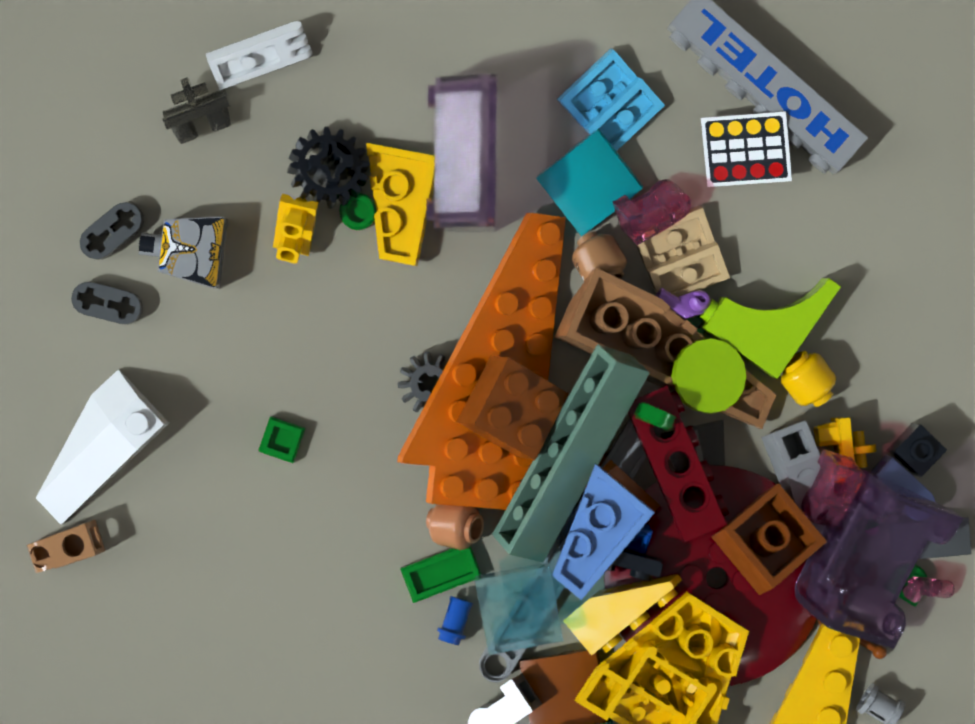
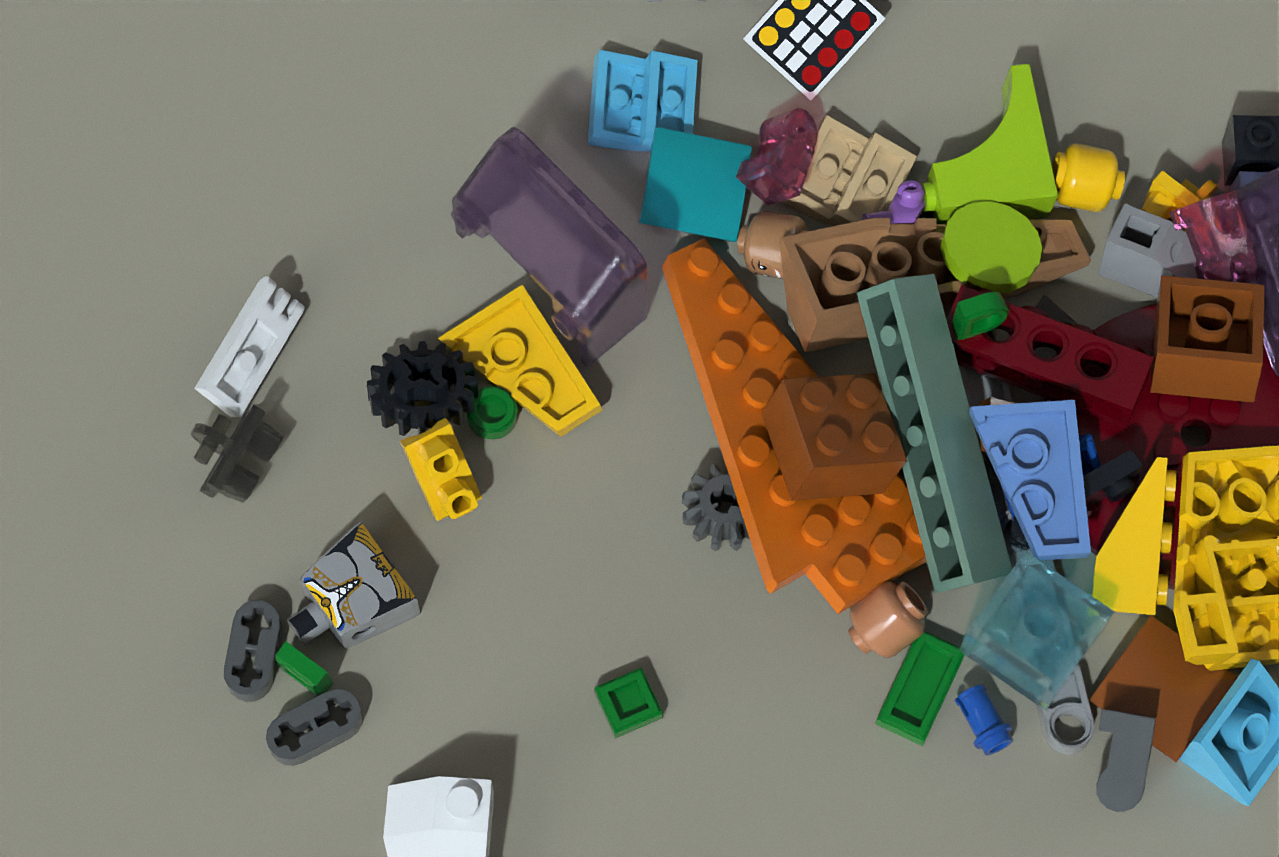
camera: 40 degrees left, 20 degrees down
(126, 268) = (303, 669): none -> green tile

